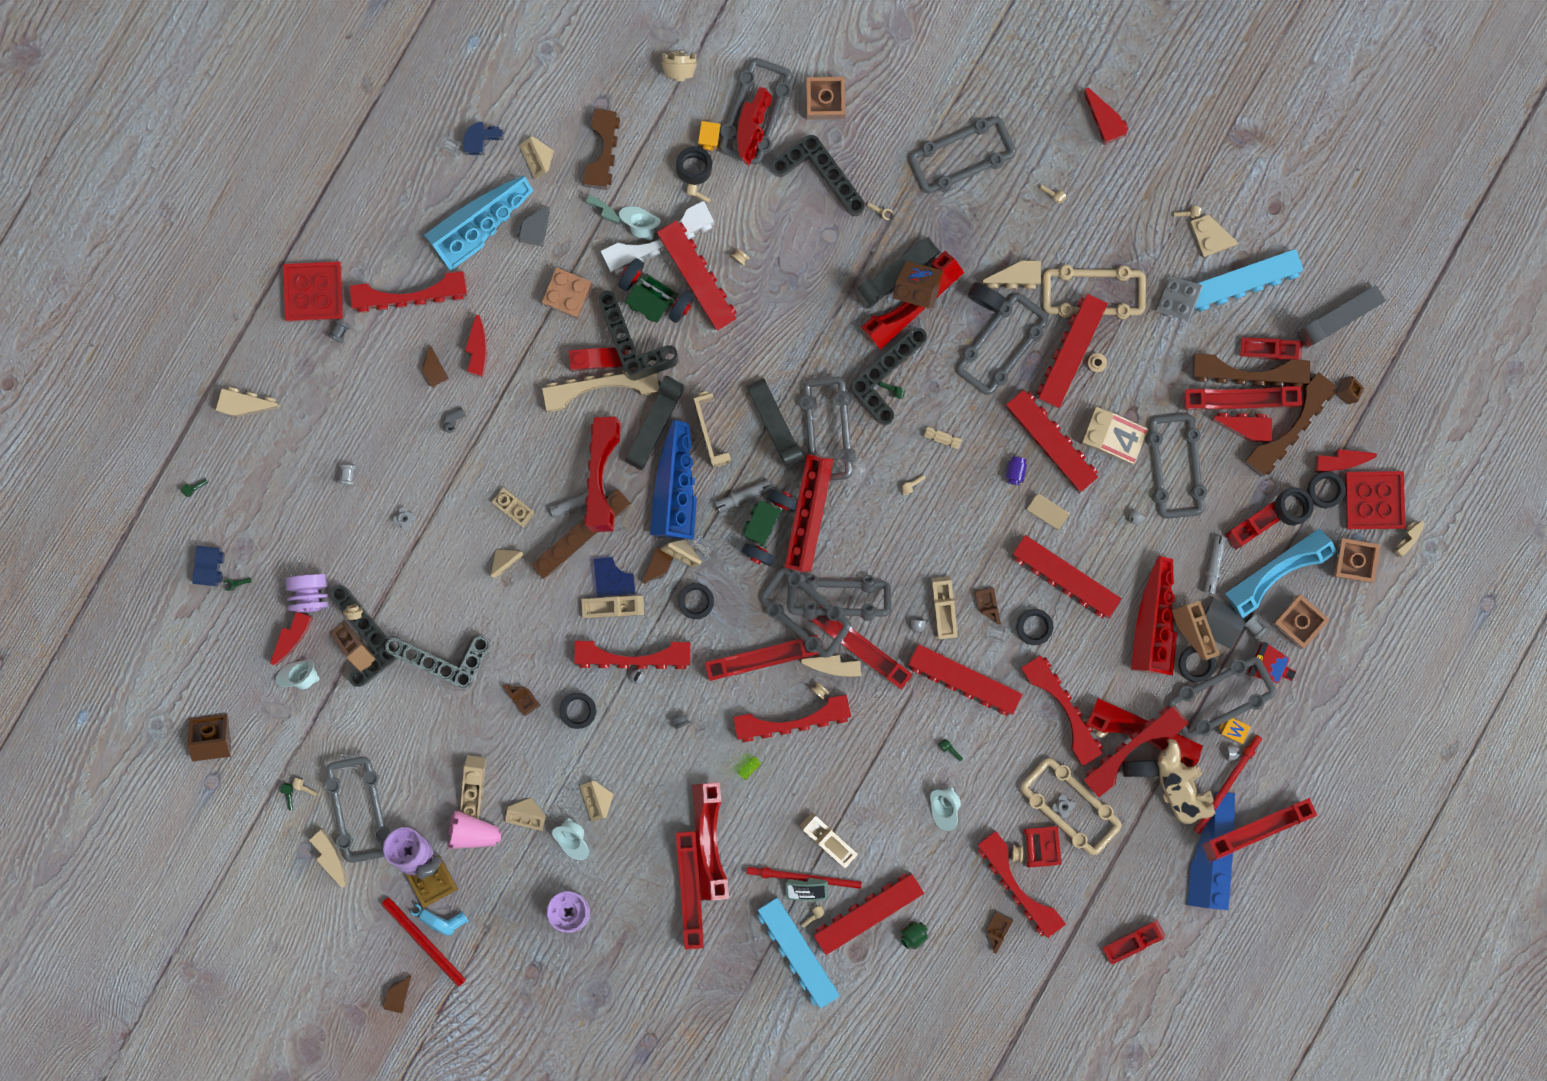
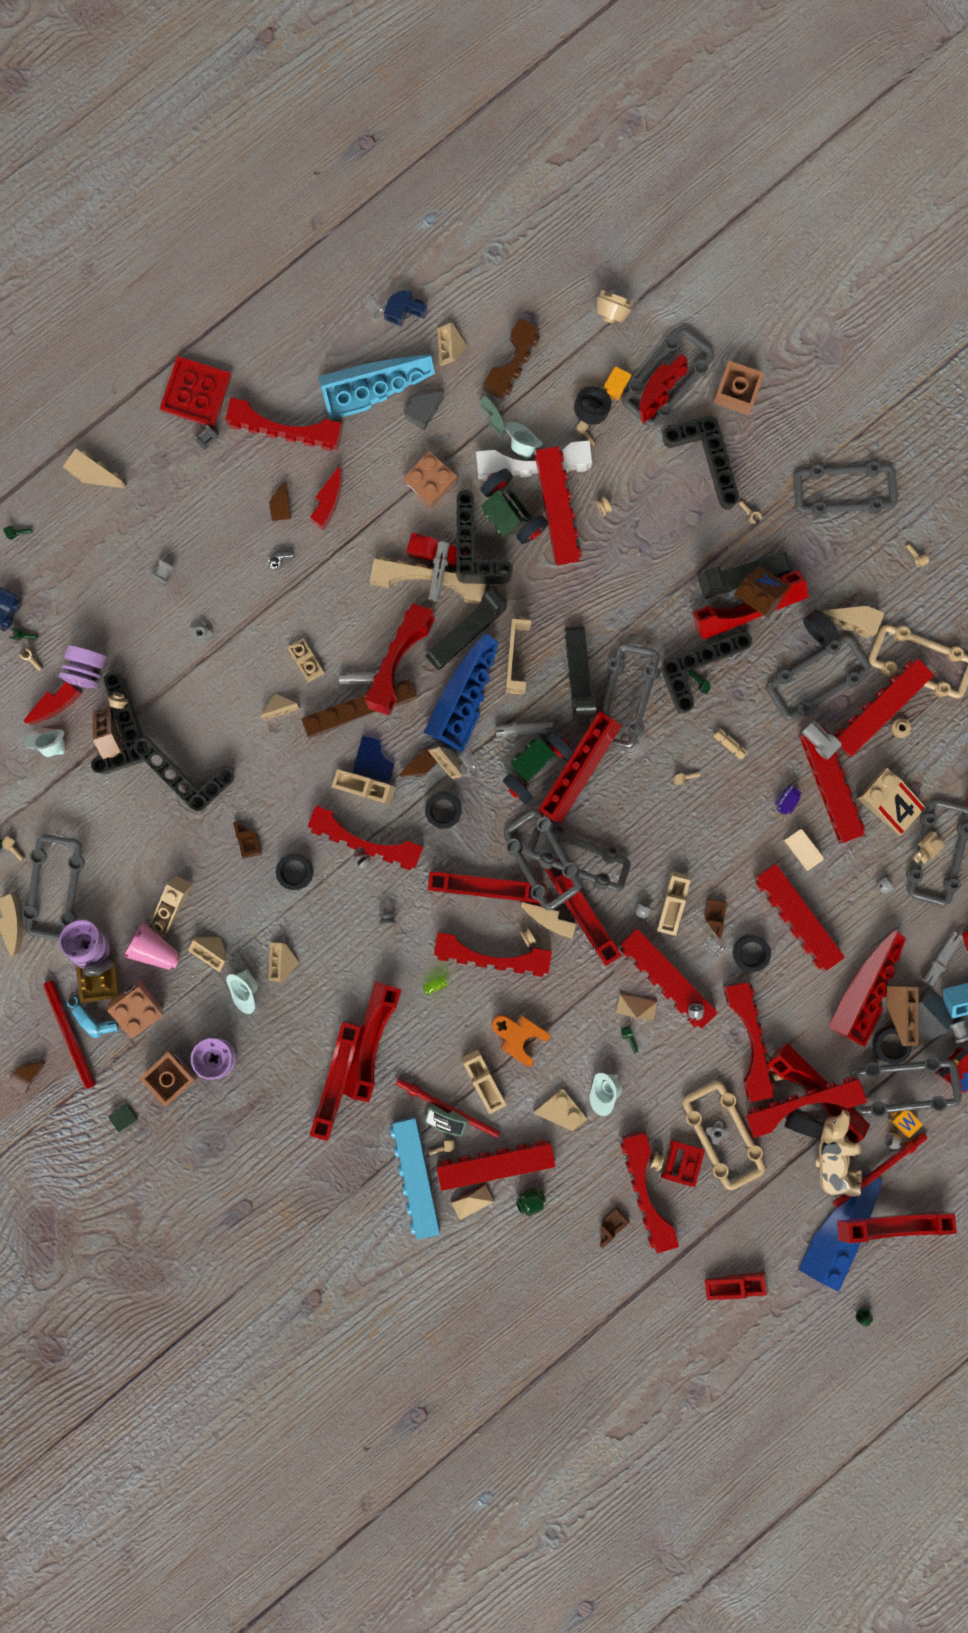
camera: 15 degrees right, 0 degrees up
(250, 601) = (29, 657): none -> tan hand
(477, 894) = (135, 1009): none -> nougat brick
(503, 1000) = (122, 1118): none -> dark green slope
(533, 946) = (168, 1078): none -> nougat brick
(612, 401) = (434, 593): none -> light grey pin
(842, 786) = (516, 1034): none -> orange piece
(860, 956) = (472, 1201): none -> tan slope
(911, 840) = (561, 1111): none -> tan wing
(945, 717) = (636, 1007): none -> tan slope
(1001, 700) = (696, 1011): none -> light grey hinge
(1028, 405) = (824, 743): none -> light grey piece
(1165, 465) = (930, 847): none -> tan plate
(1262, 922) = (860, 1314): none -> dark green hinge

